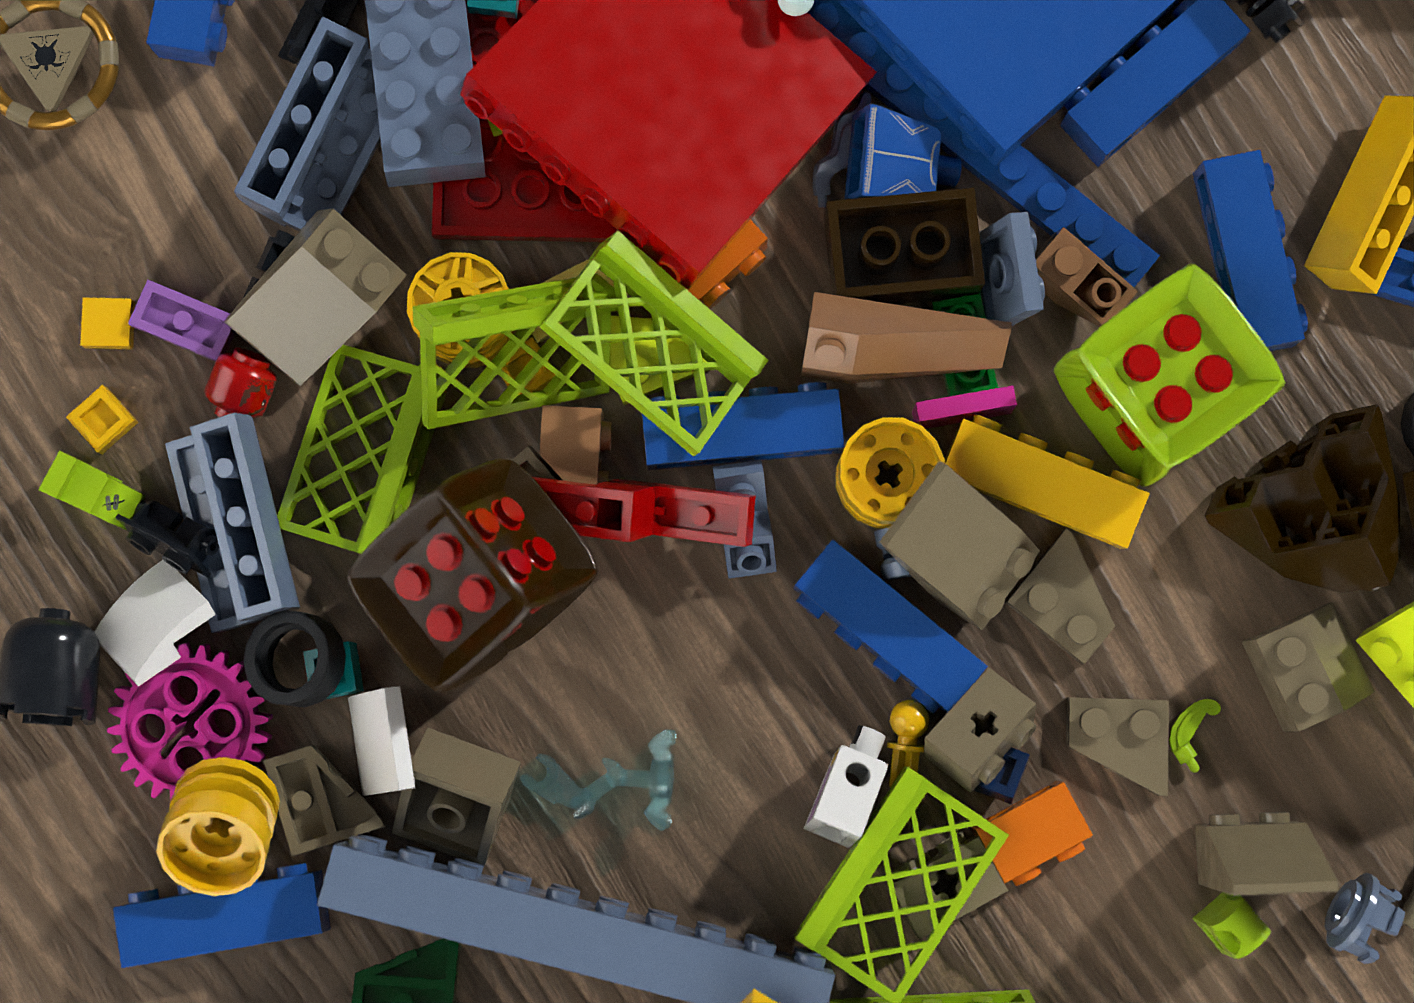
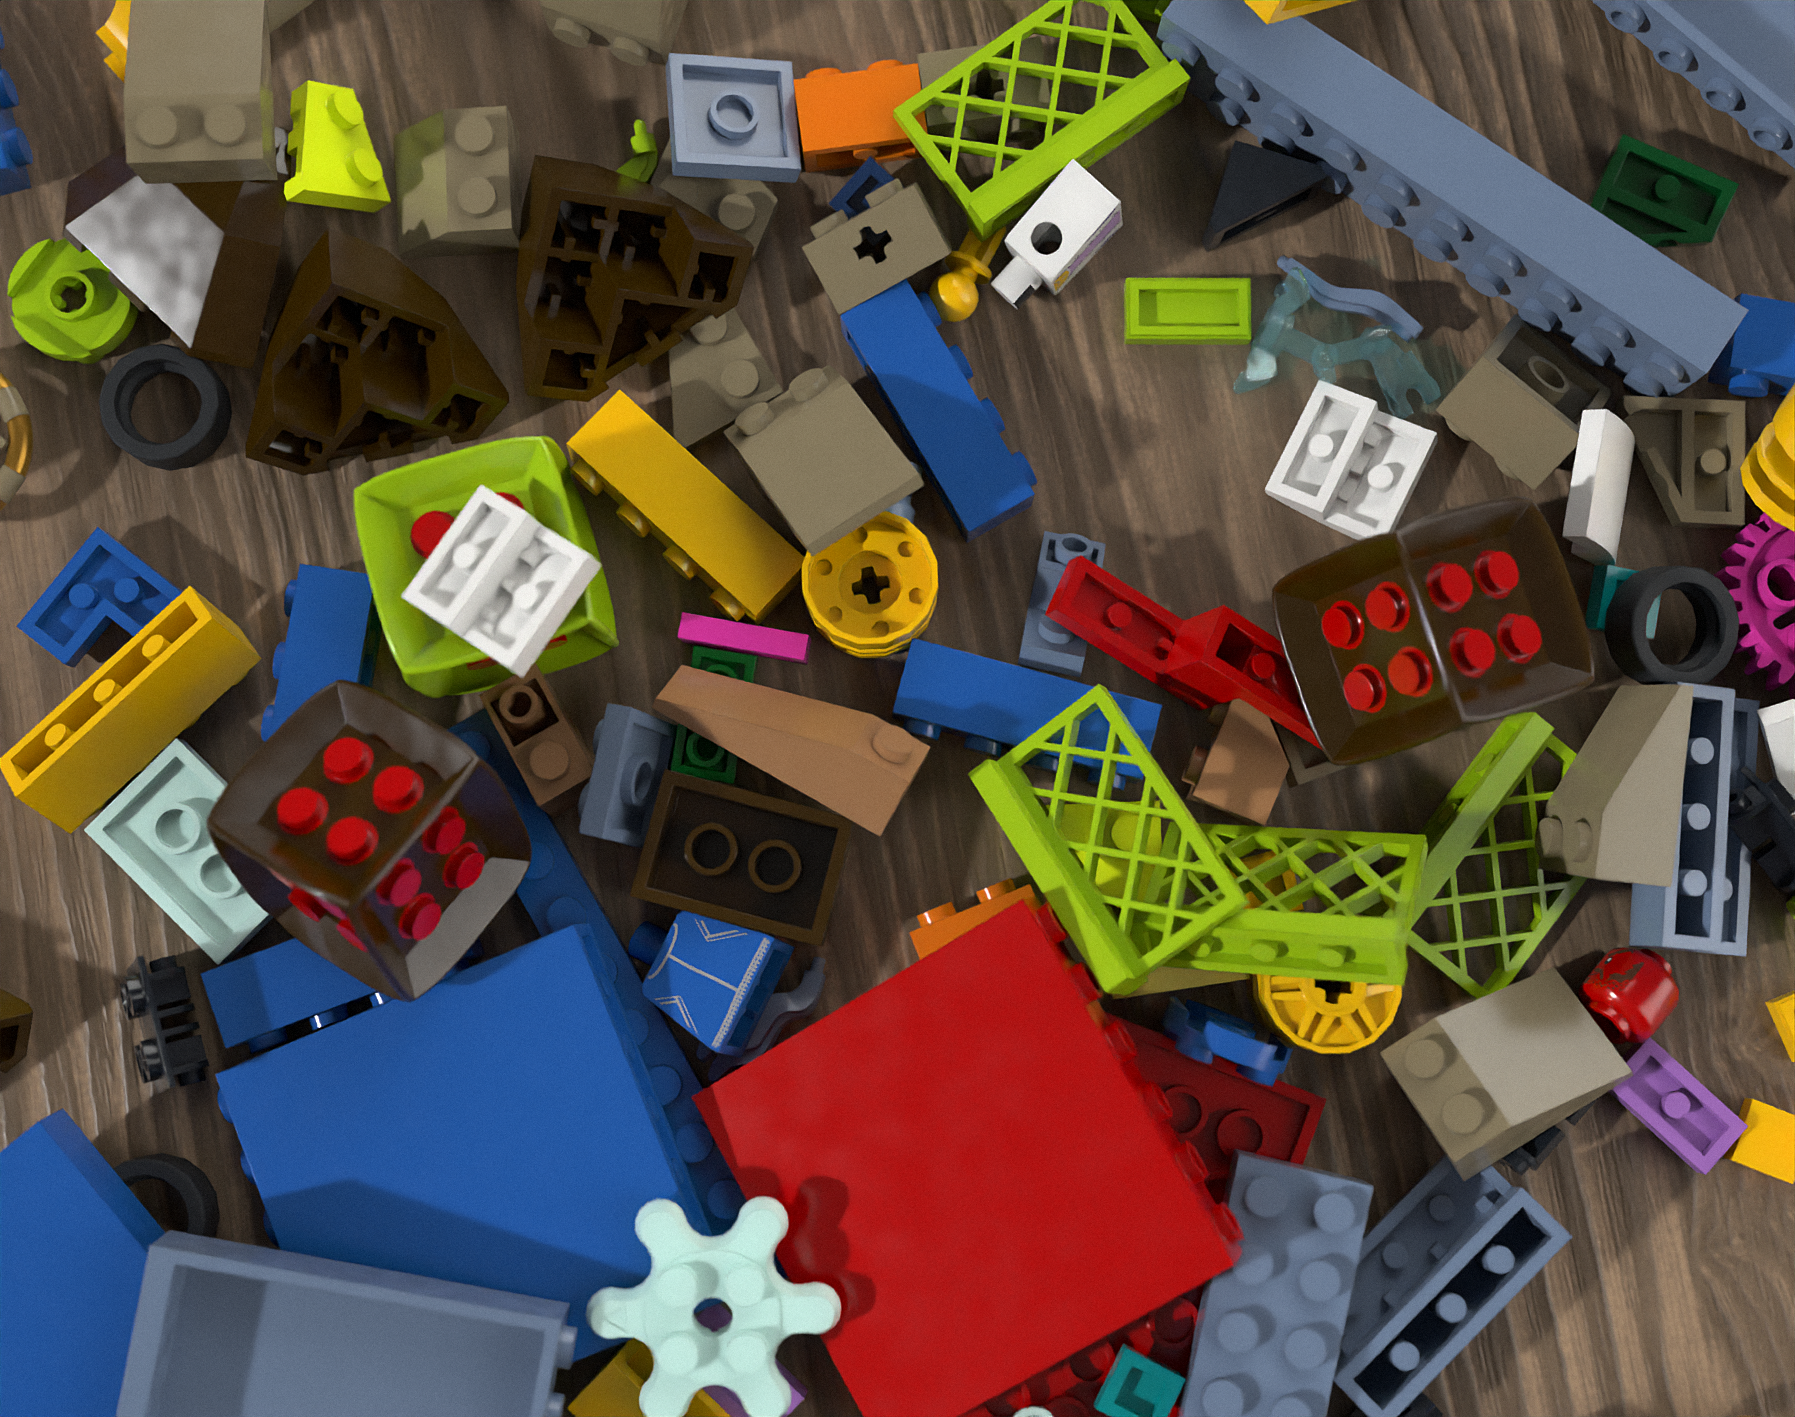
camera: 160 degrees left, 0 degrees up
(297, 514) = (1623, 791): none -> dark tan slope
(520, 246) = (1207, 1031): none -> blue plate
(568, 703) = (1350, 463): none -> white slope
(613, 826) = (1357, 301): none -> sand blue hair
(714, 885) = (1257, 189): none -> black slope
(730, 777) = (1187, 311): none -> lime tile
(1127, 792) = (732, 118): none -> sand blue plate
(1152, 350) = (501, 580): none -> white slope
(1167, 637) = (613, 275): none -> dark brown brick
(1169, 152) = (373, 838): none -> dark brown piece
(1290, 116) = (164, 845): none -> light aqua plate

